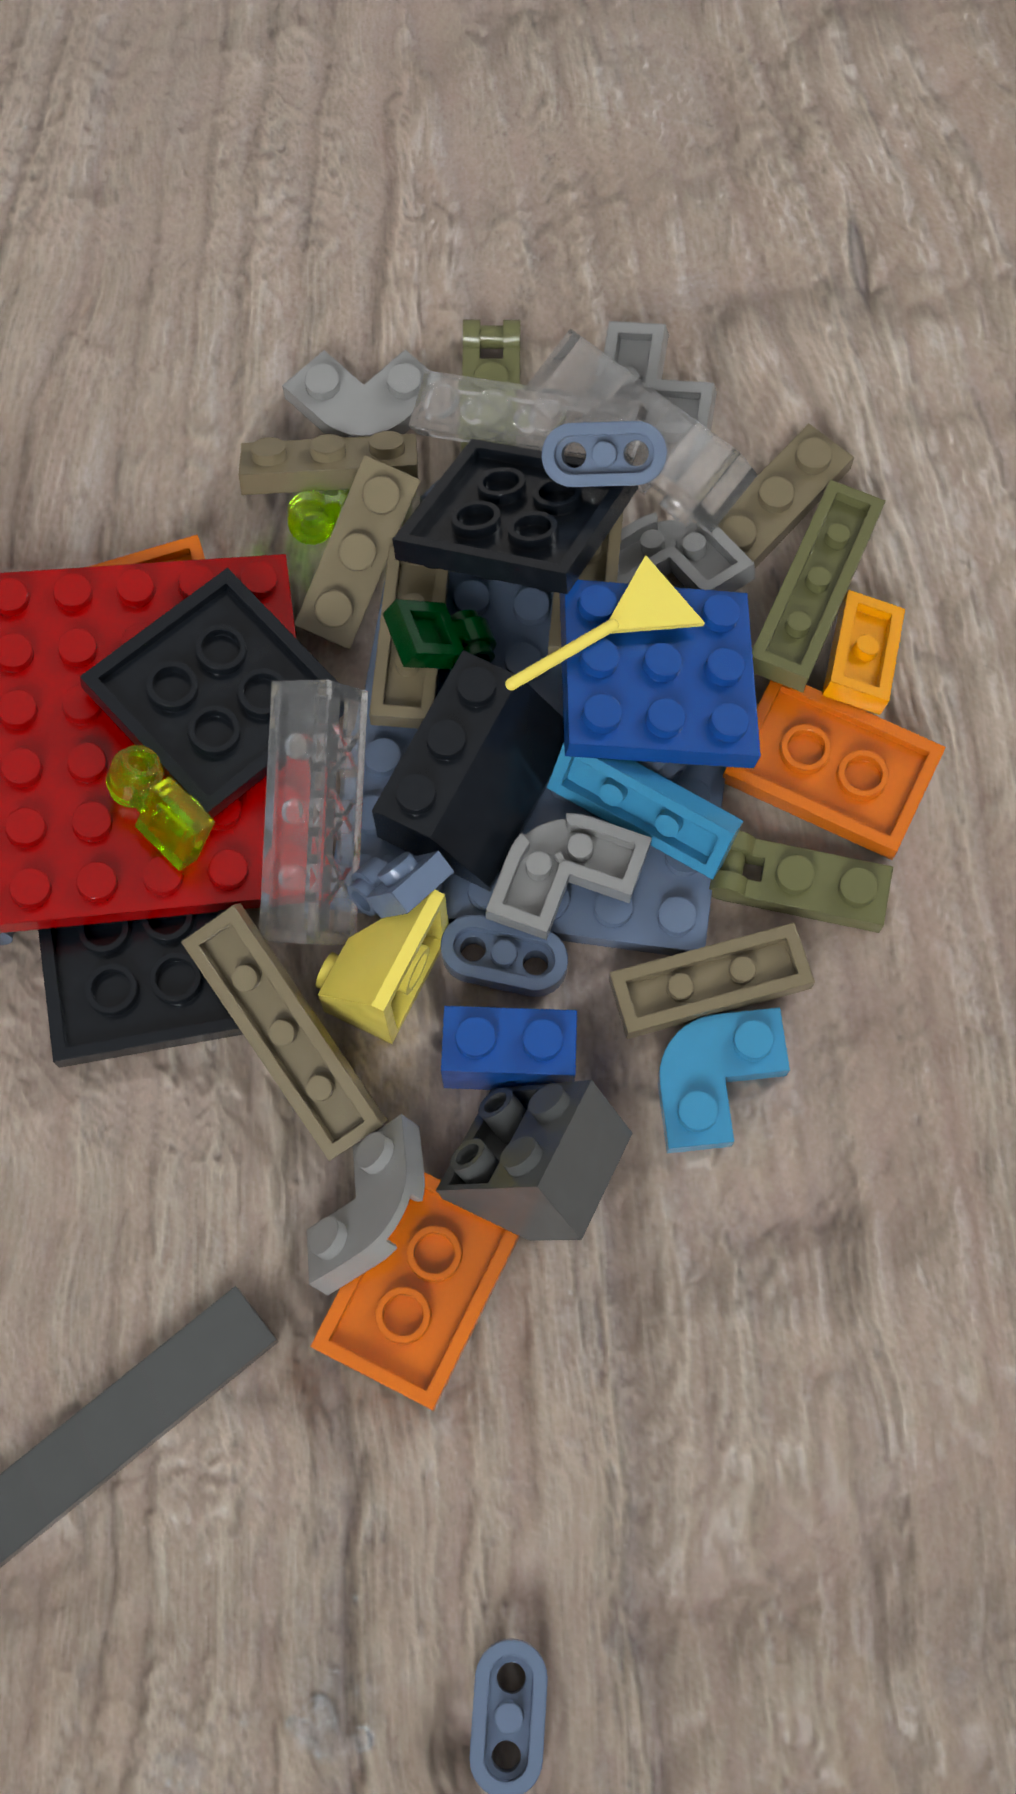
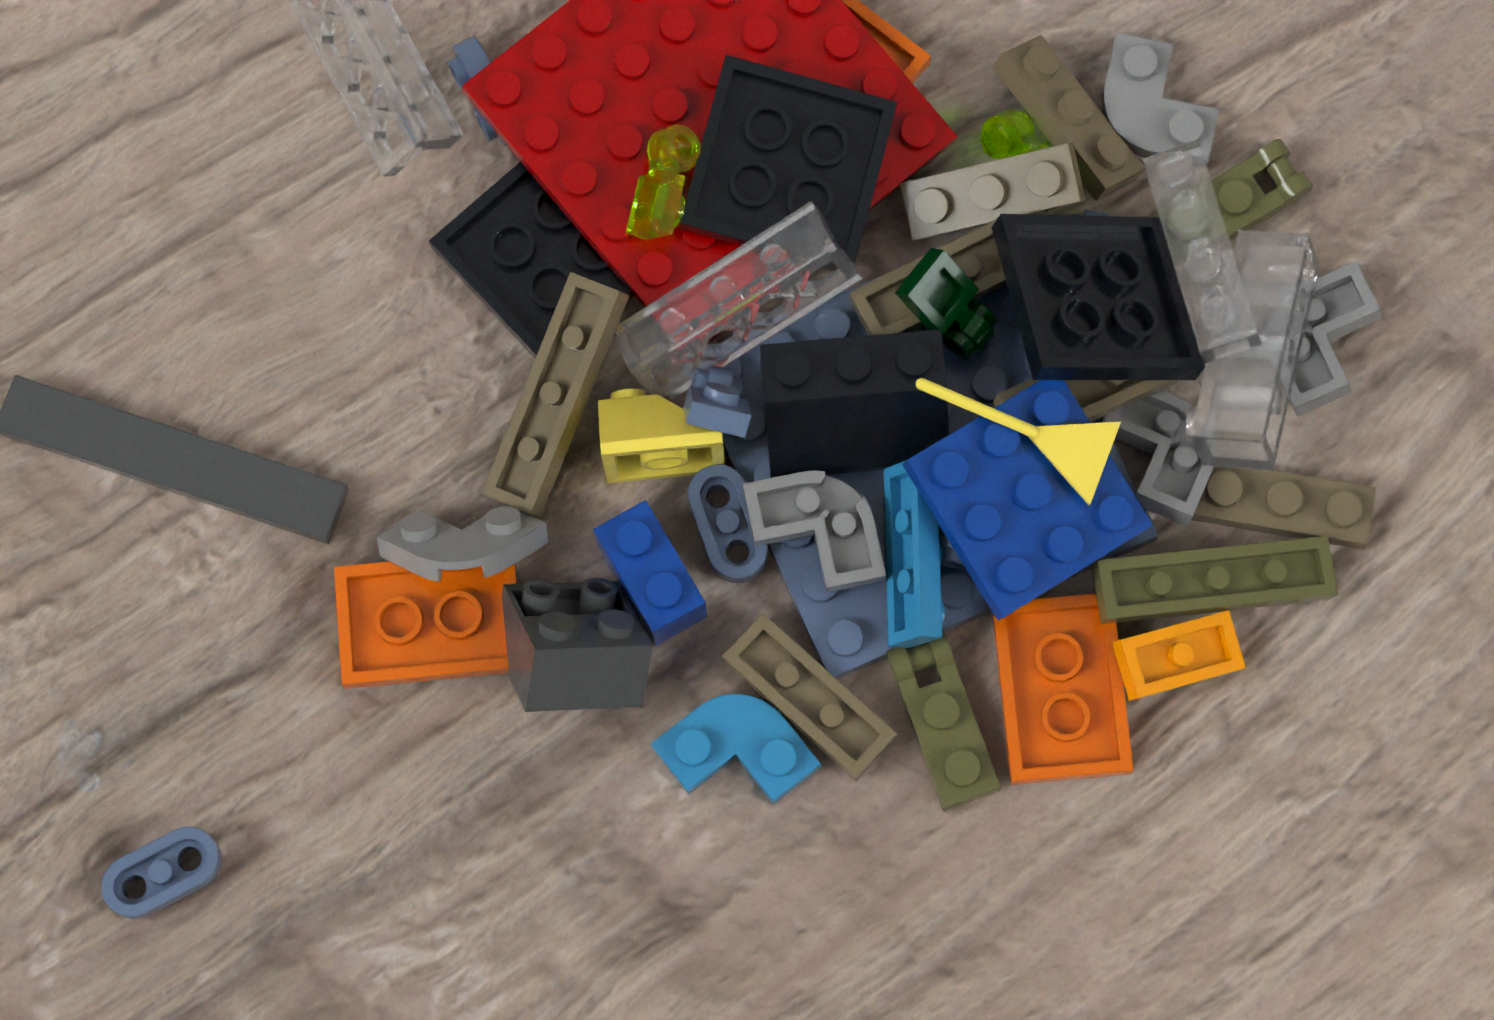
camera: 60 degrees right, 5 degrees up
(605, 454) = (1187, 336): sand blue plate -> none

